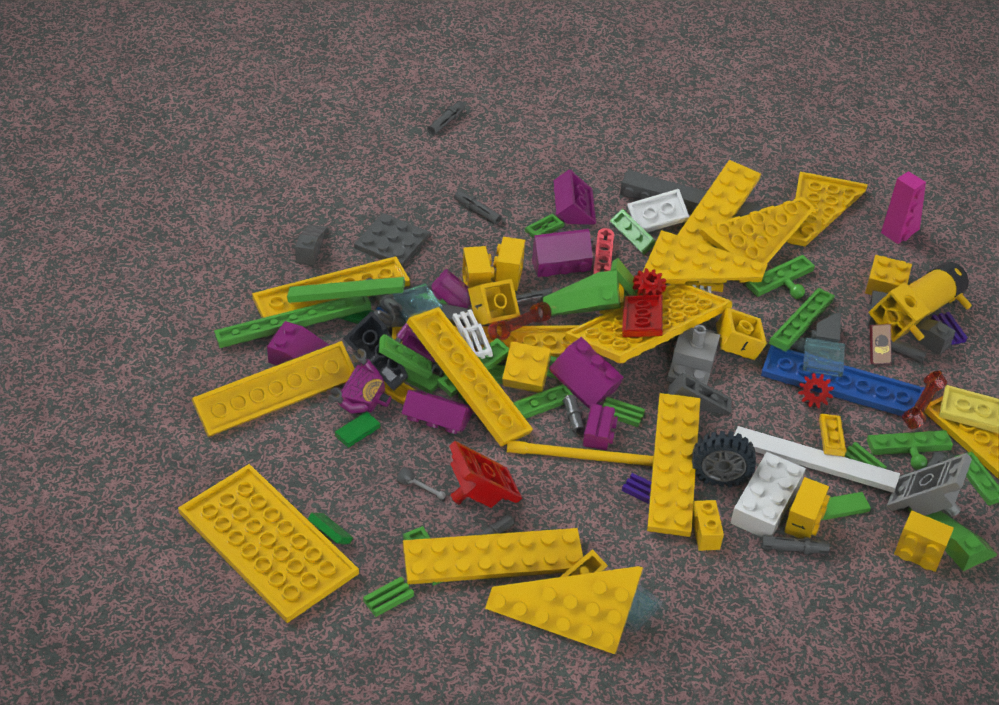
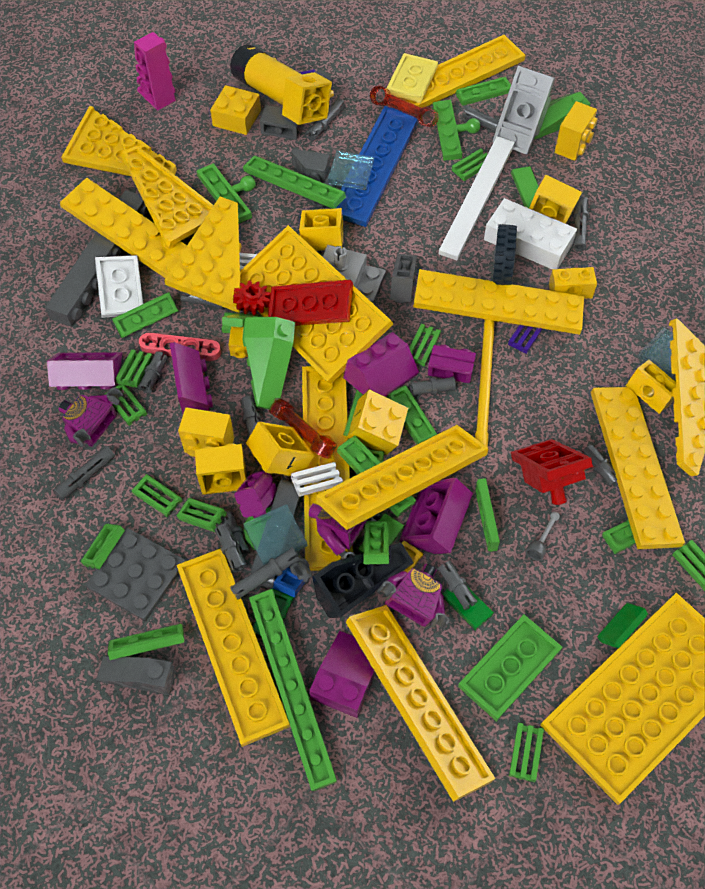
camera: 85 degrees left, 15 degrees up
(230, 456) = (530, 730): none -> bright green tile
(299, 451) = (510, 667): none -> bright green plate
(335, 245) = (146, 641): none -> bright green tile
(346, 289) = (257, 616): bright green tile -> none
(370, 415) = (457, 585): none -> dark grey pin
(414, 219) = (102, 546): none -> bright green tile
(420, 278) = (230, 548): none -> dark grey pin
(431, 269) = (199, 522): none -> bright green tile
(437, 442) = (487, 515): none -> bright green tile
(457, 255) = (170, 505): none -> bright green tile
(481, 353) = (344, 459): white tile -> none
(523, 203) = (89, 416): none -> magenta torso
(571, 224) = (133, 361): none -> bright green tile
(811, 396) = (395, 182): red gear -> none
(832, 435) = (447, 179): yellow tile -> none
(880, 343) = (331, 126): tile -> none

